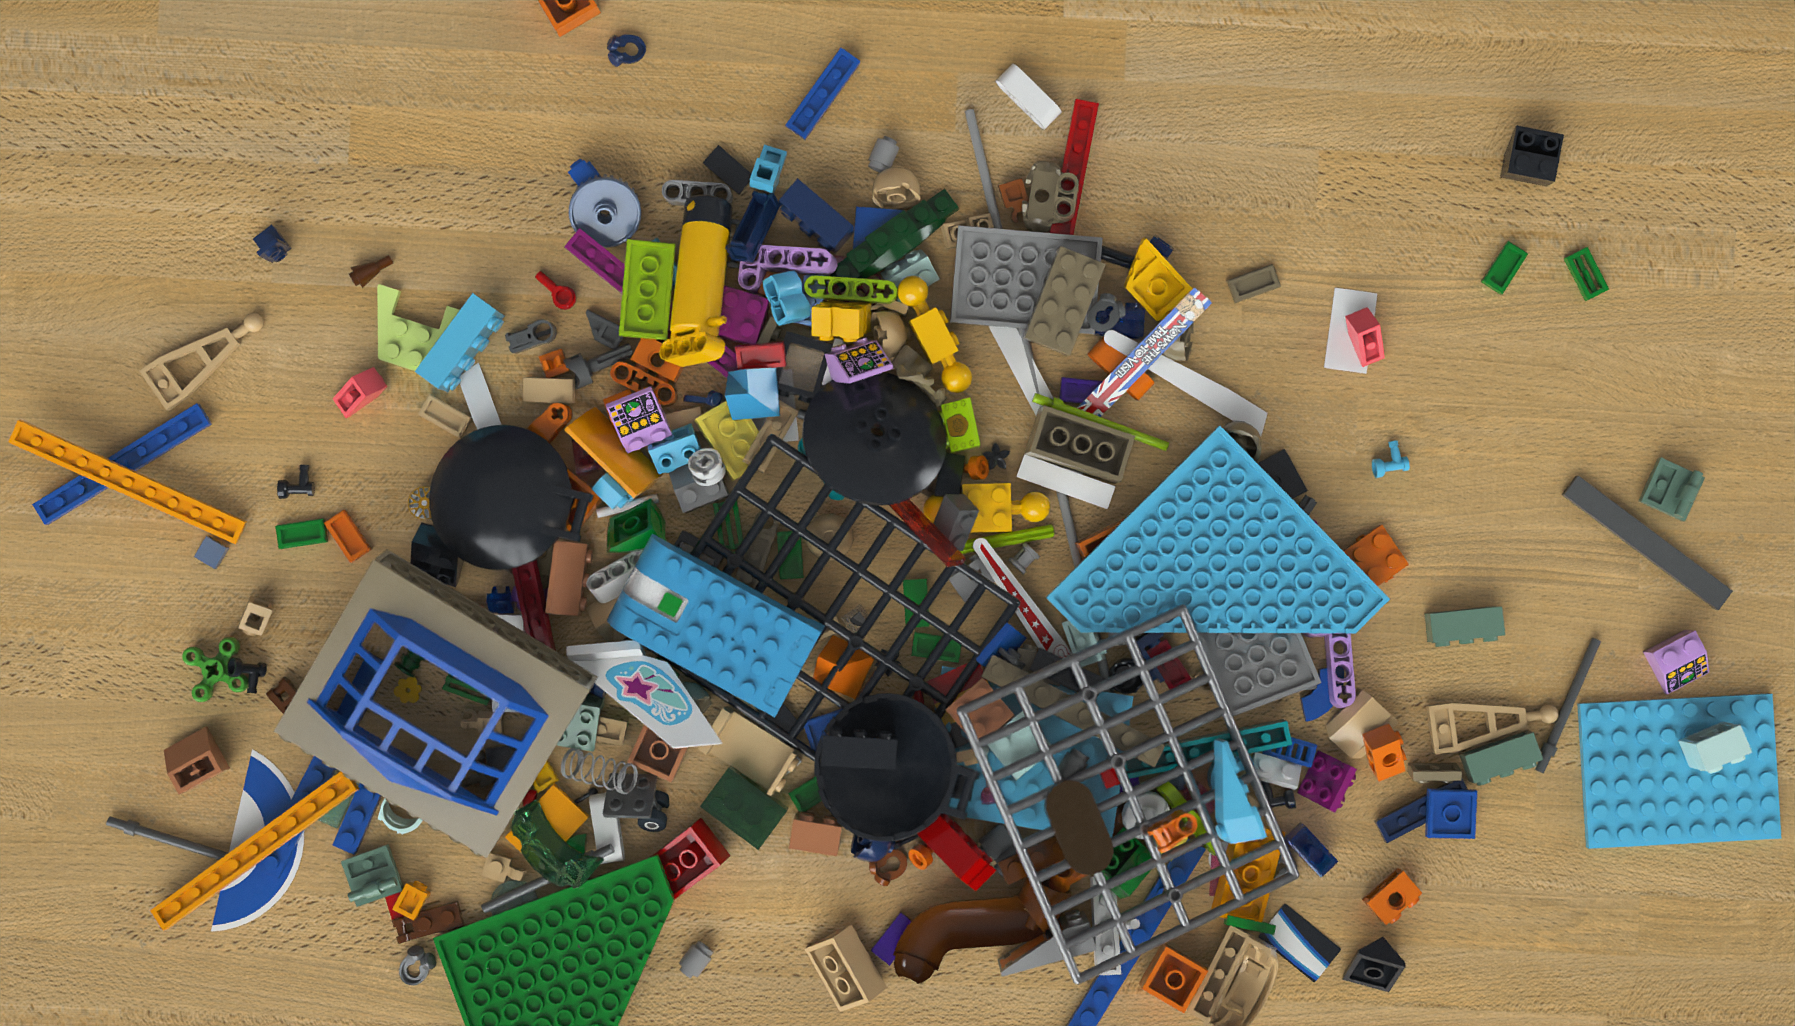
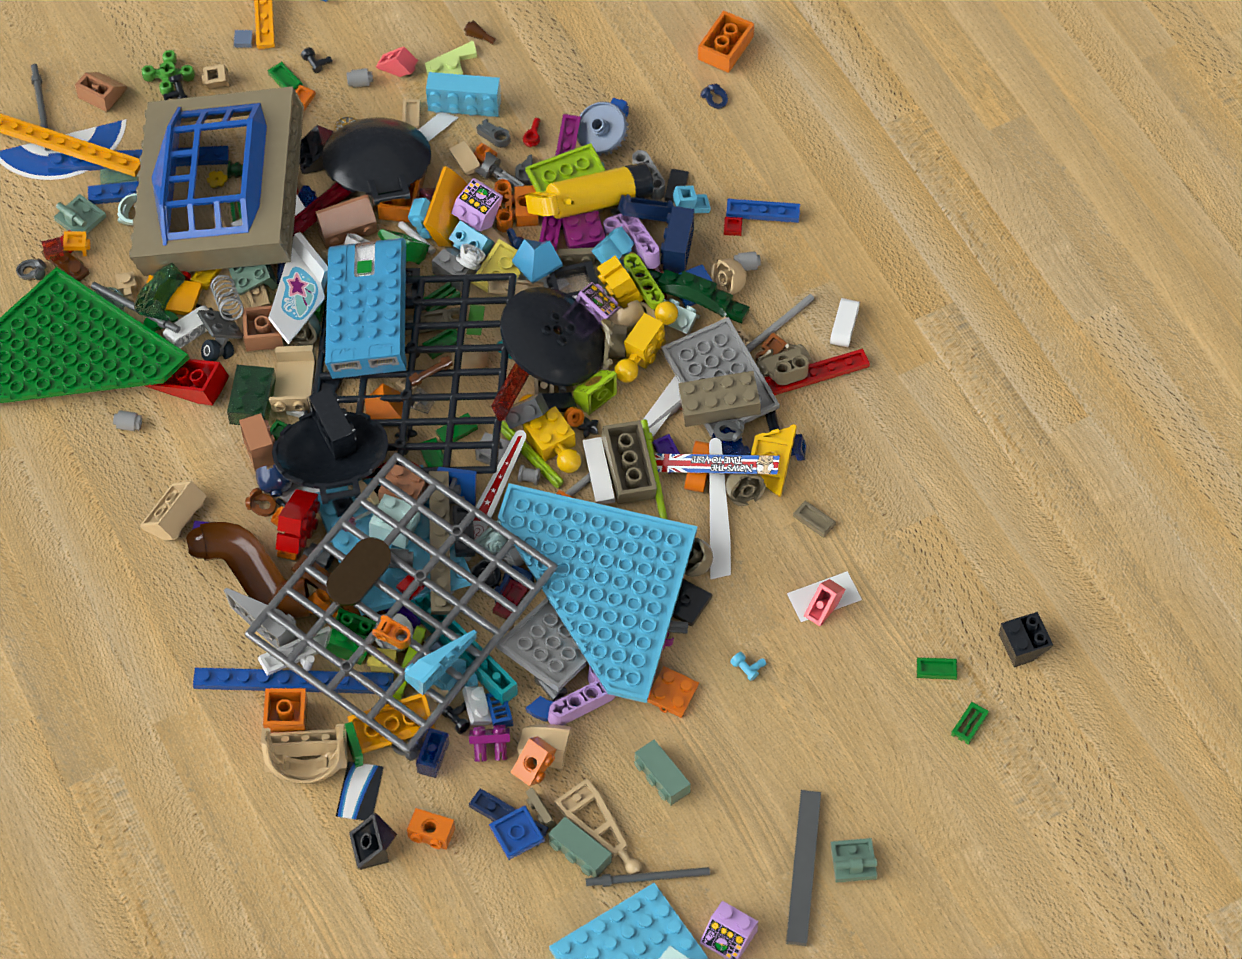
camera: 60 degrees right, 30 degrees down
(356, 447) = (359, 77): none -> light grey brick
(412, 935) = (52, 249): none -> clear red tile
(548, 425) = (437, 163): orange piece -> none
(761, 355) = (566, 252): red tile -> none
(787, 504) = (475, 314): none -> bright green sticker
(821, 139) = (733, 226): none -> red tile
(845, 579) = (416, 379): none -> reddish brown bar

